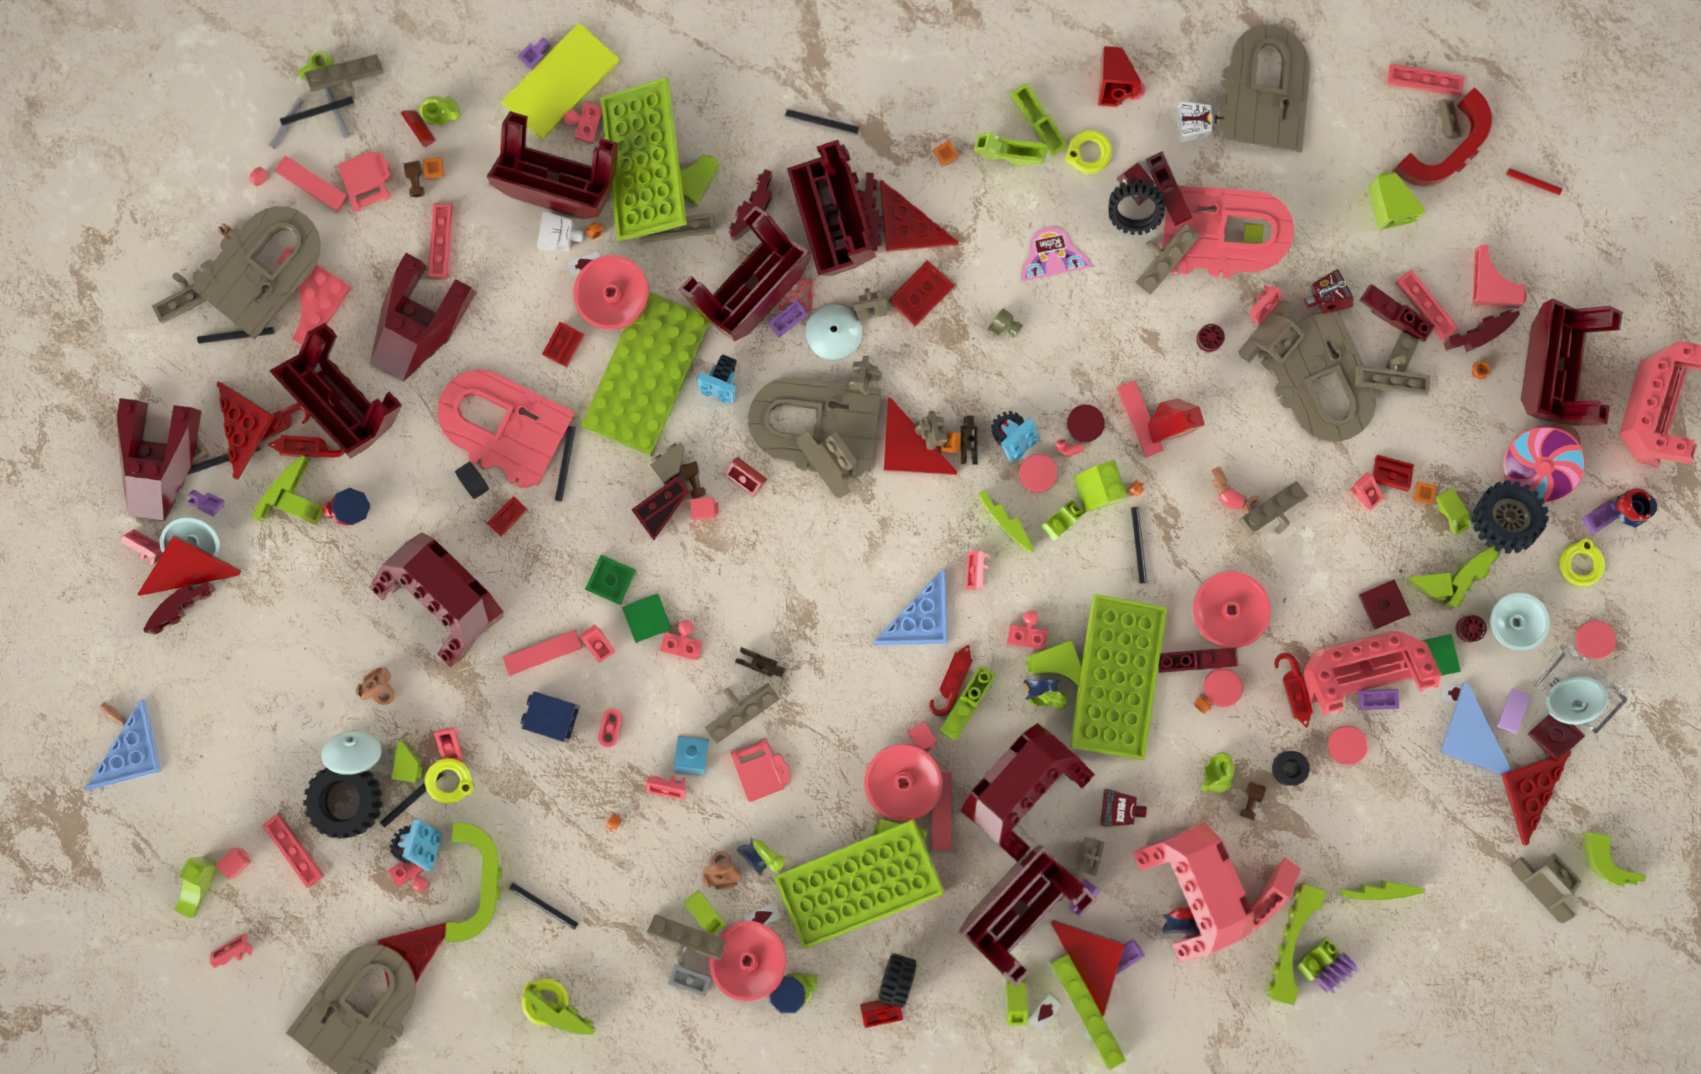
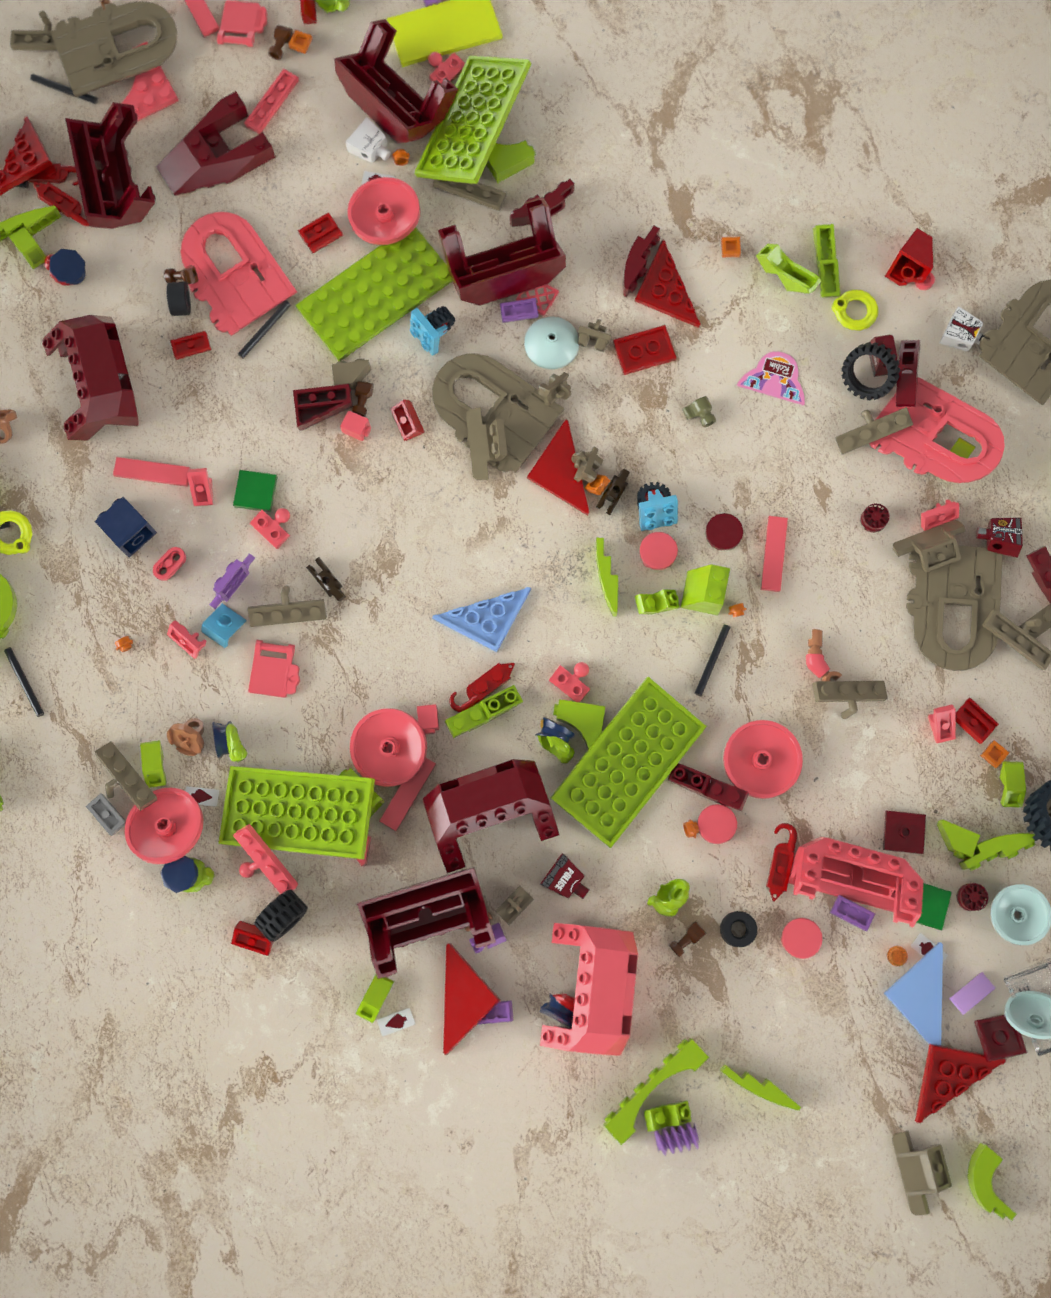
camera: 30 degrees right, 5 degrees down
(448, 743) = (28, 500): coral slope -> none
(466, 453) = (188, 275): none -> reddish brown leg
(610, 579) = (244, 443): green tile -> none
(677, 704) = (231, 580): none -> medium lavender plate
(822, 121) = (643, 170): black bar -> none
(838, 220) = (600, 263): dark red wedge -> none
(853, 940) = (263, 859): none -> coral plate
(975, 570) = (556, 602): coral plate -> none
(1067, 449) = (695, 545): coral arm -> none
(1088, 1011) = (432, 1042): lime arch -> none
(1174, 420) = (803, 570): red slope -> none
(1275, 892) = (660, 1031): coral arch -> none
(1435, 714) = (897, 956): none -> clear orange plate

